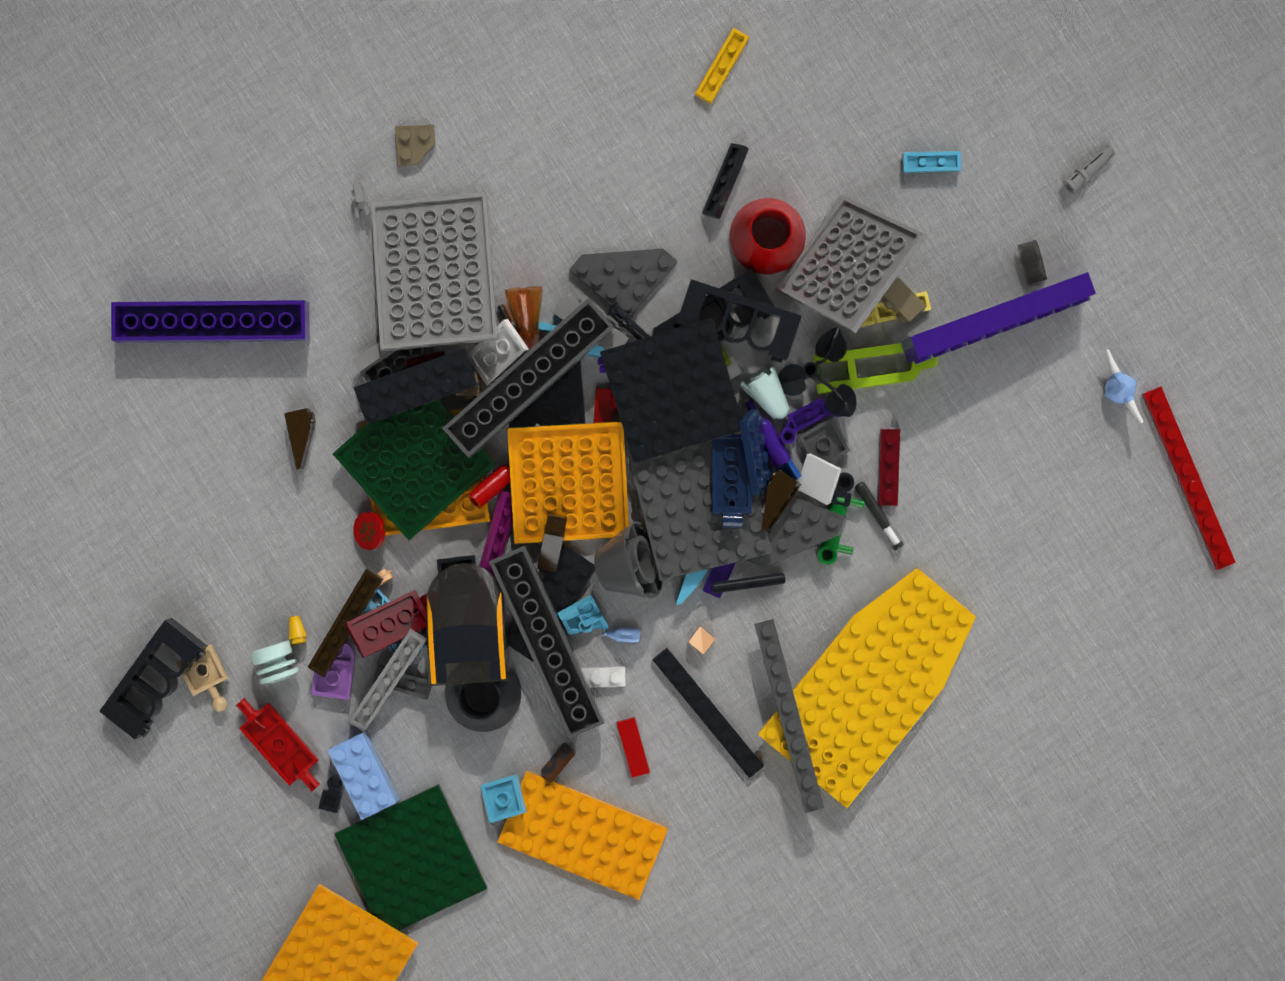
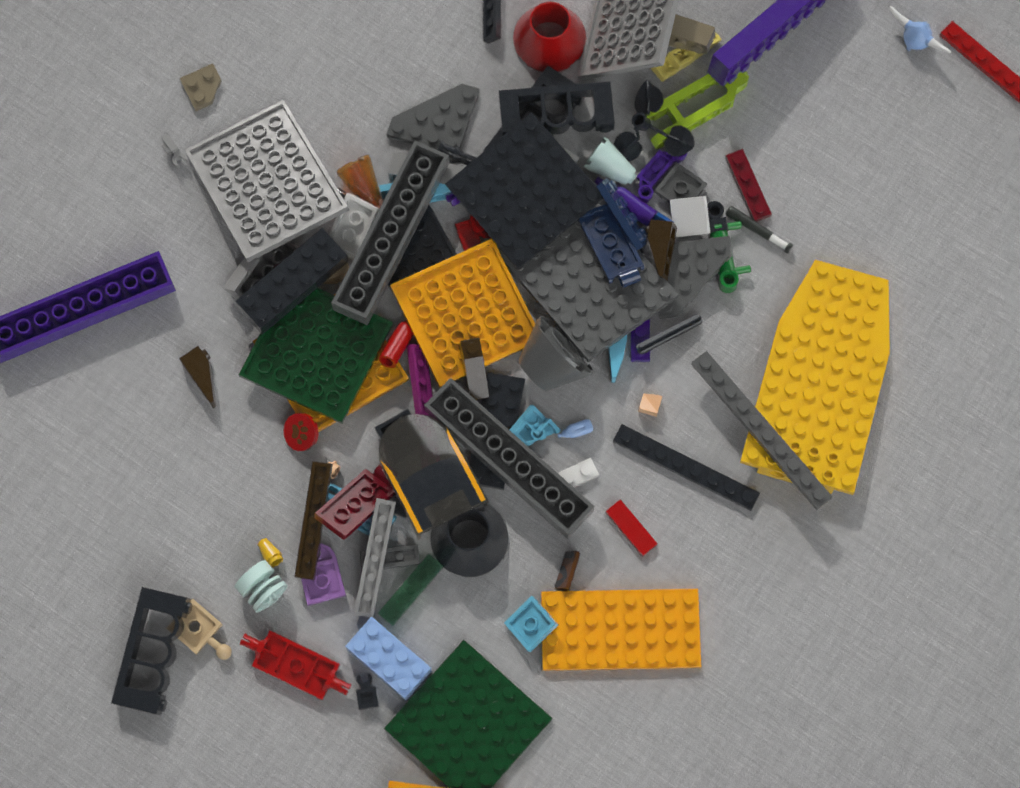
camera: 15 degrees left, 15 degrees down
(409, 719) = (410, 590): none -> clear green plate

